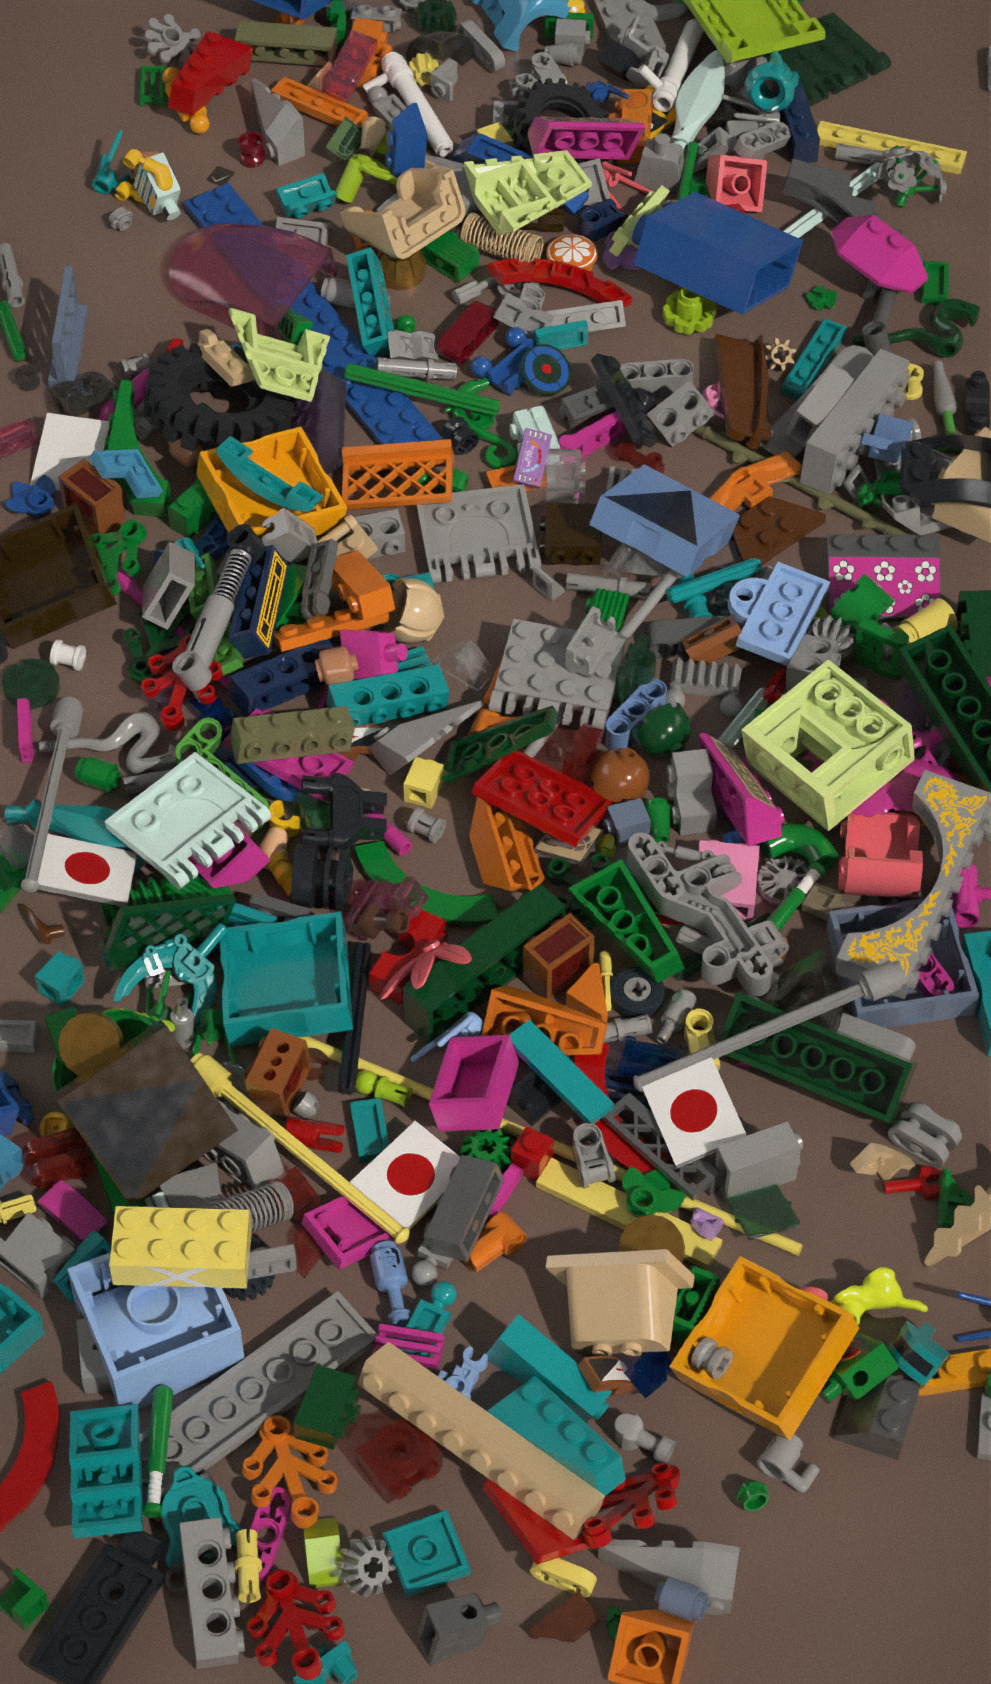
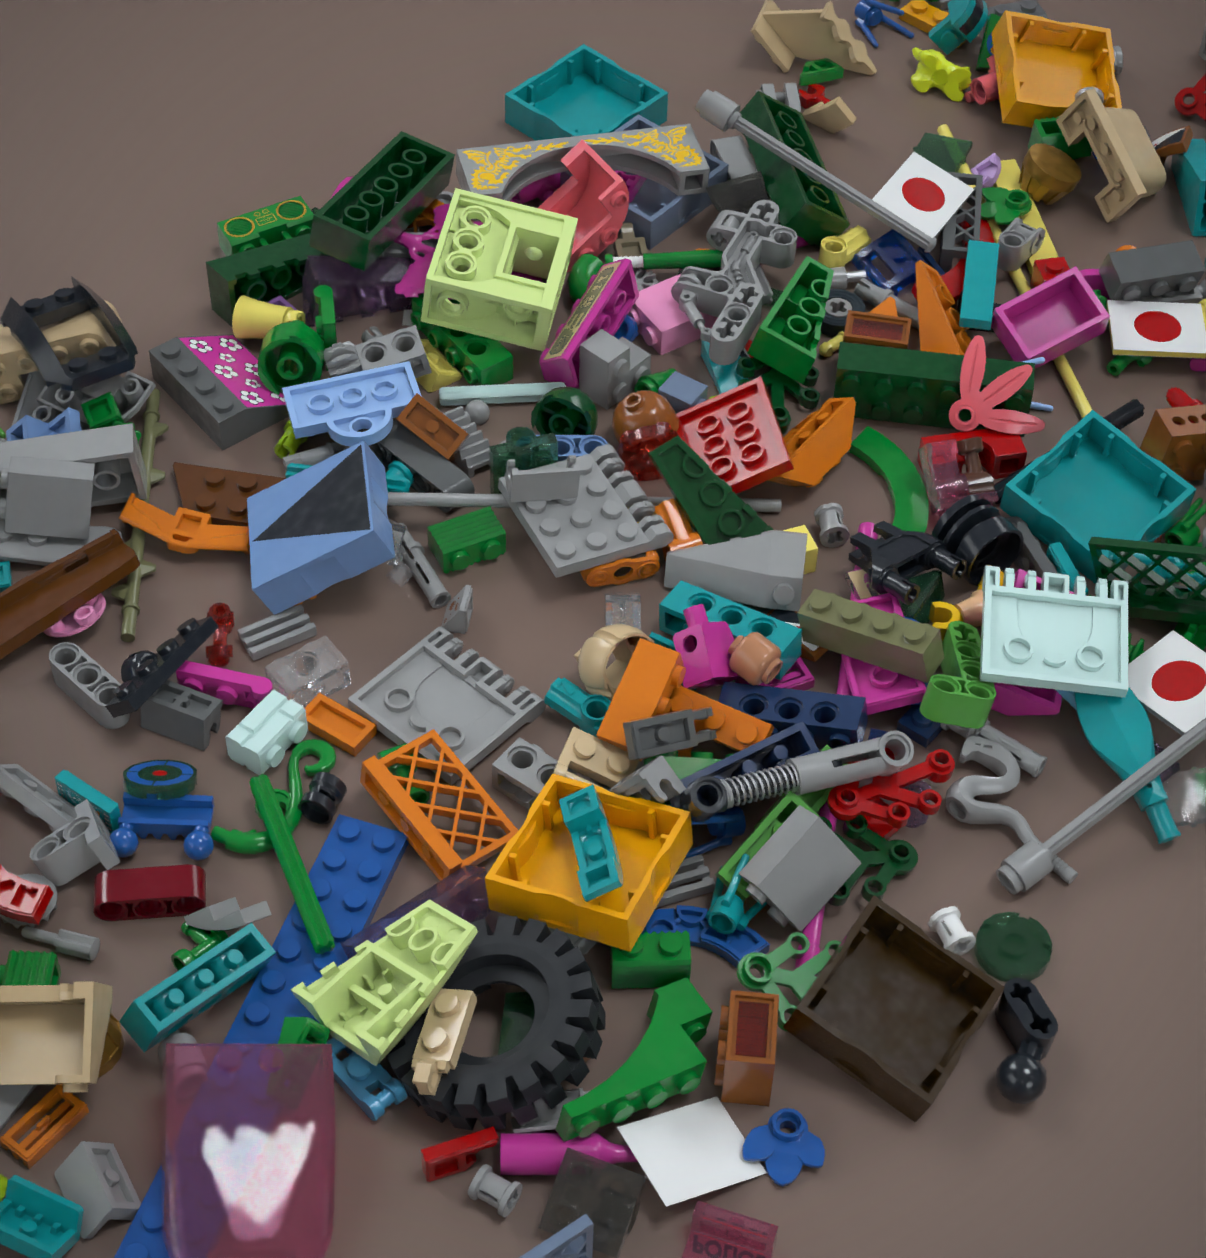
camera: 130 degrees left, 5 degrees down
(25, 734) = (1076, 894): dark pink tile -> none
(98, 773) = (1053, 797): green brick -> none
(129, 465) = (691, 1015): dark azure tile -> none
(368, 1082) = (1101, 399): lime pin -> none
(369, 1128) = (1146, 385): teal tile -> none
(421, 369) = (249, 892): light grey pin -> none
(532, 458) = (314, 697): medium lavender tile -> none
(569, 535) = (382, 617): dark brown brick -> none
(631, 1435) = (1170, 113): light grey leg -> none
(678, 410) = (132, 627): light grey brick -> none
(752, 1495) = (1144, 62): green plate -> none
(758, 1160) = (902, 138): light grey brick -> none
(776, 685) = (436, 380): red axle -> none

